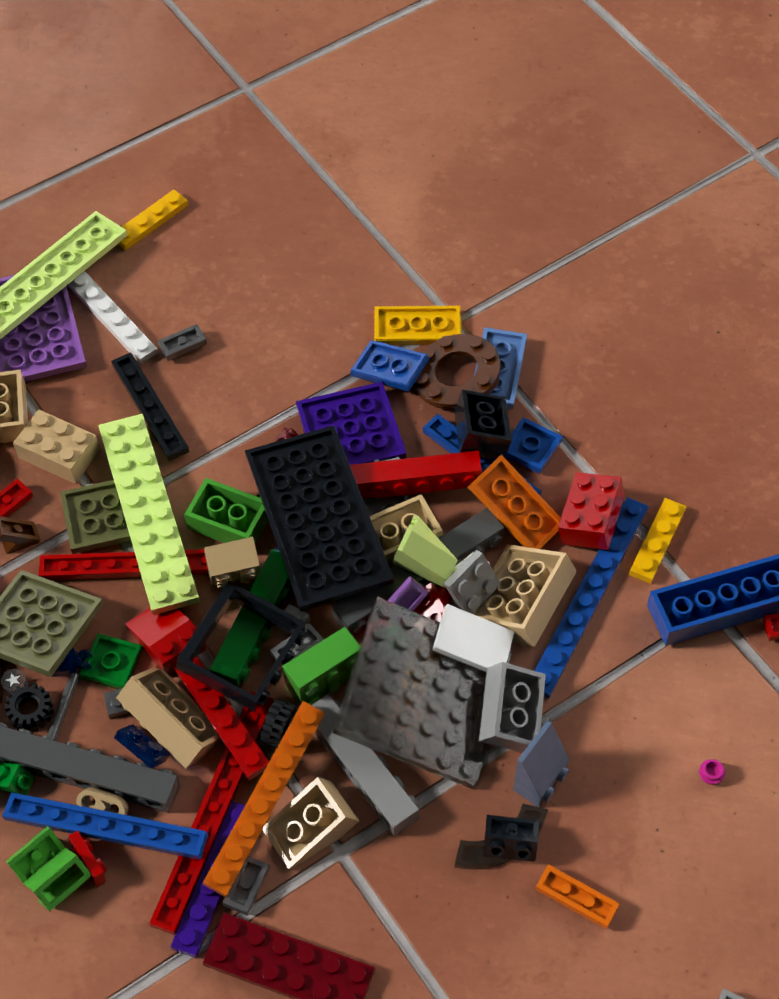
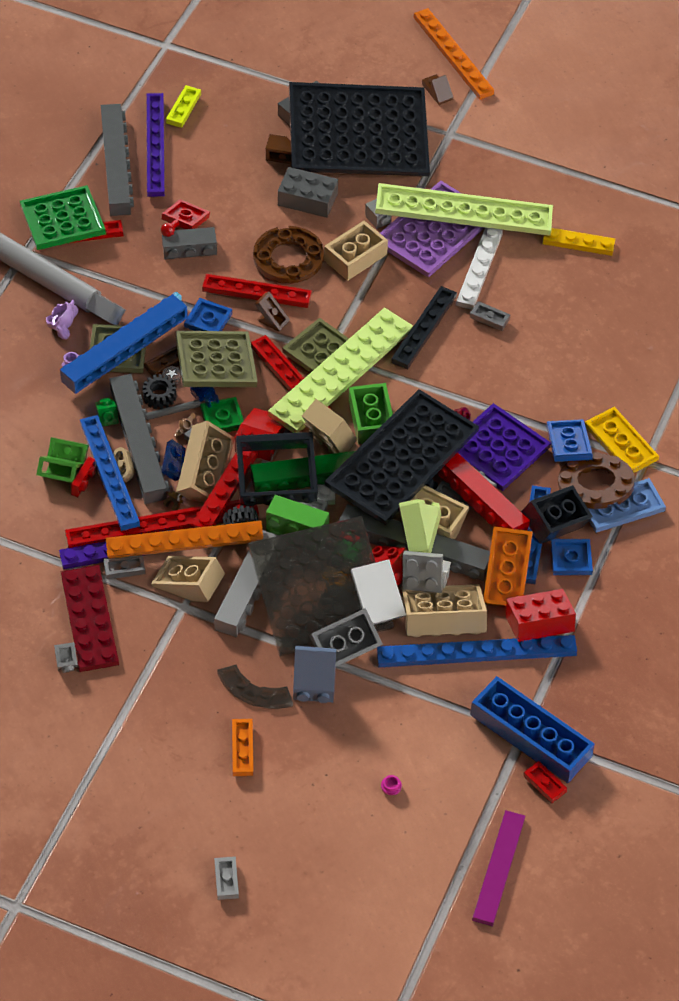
camera: 55 degrees right, 5 degrees down
(56, 446) = (351, 296): tan brick -> none
(95, 707) = (185, 425): none -> medium nougat piece
(189, 774) = (175, 498): none -> dark brown plate
(409, 594) = (383, 540): medium lavender tile -> none
(511, 838) = (254, 687): black bracket -> none
(657, 540) = (554, 671): yellow plate -> none

